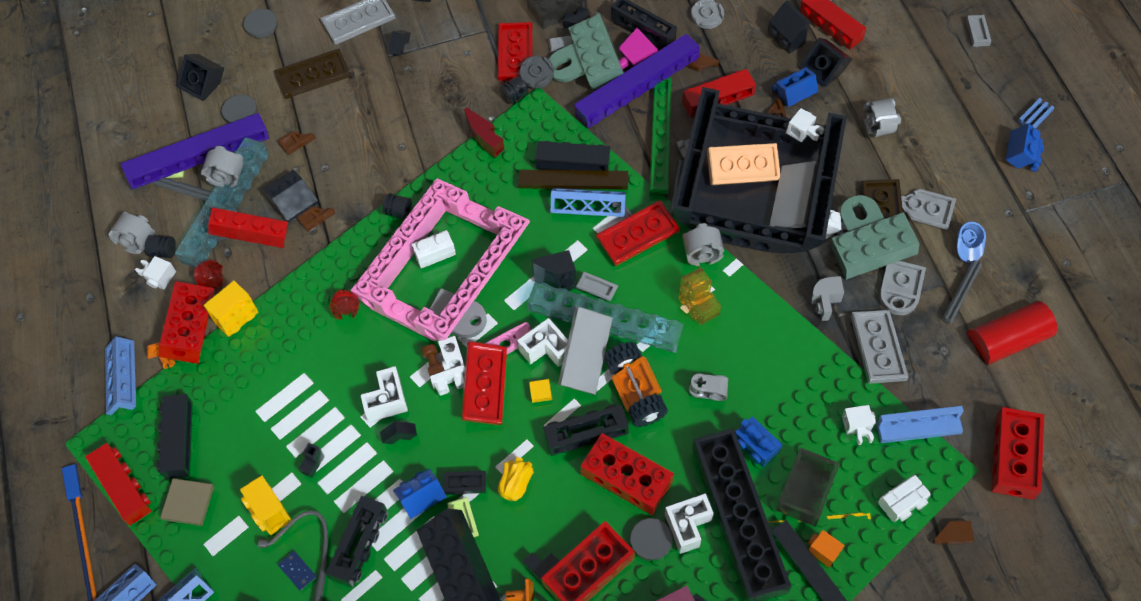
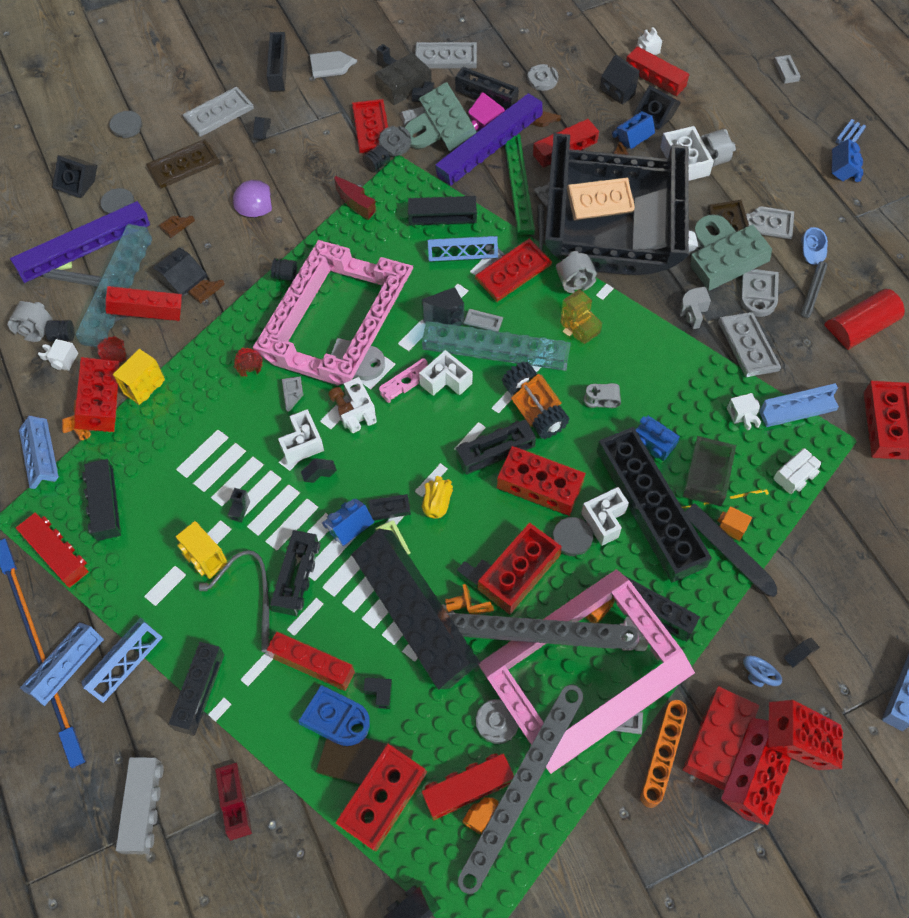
camera: 10 degrees left, 0 degrees up
(187, 502) = (123, 558): dark tan tile -> none
(222, 167) = (111, 250): light grey brick -> none
(297, 570) = (240, 608): dark blue sticker -> none
(378, 121) = (252, 198): none -> medium lavender cylinder
(385, 341) = (292, 391): none -> light grey tile
(433, 249) = (325, 303): white brick -> none
(484, 383) = (393, 416): red tile -> none
(540, 390) = (446, 418): yellow tile -> none
(573, 179) = (445, 230): dark brown tile -> none
(585, 351) = (484, 375): light grey tile -> none
(803, 125) = (649, 159): white brick -> none
(858, 128) = (699, 158): none -> white brick
(956, 533) = (847, 497): reddish brown tile -> none

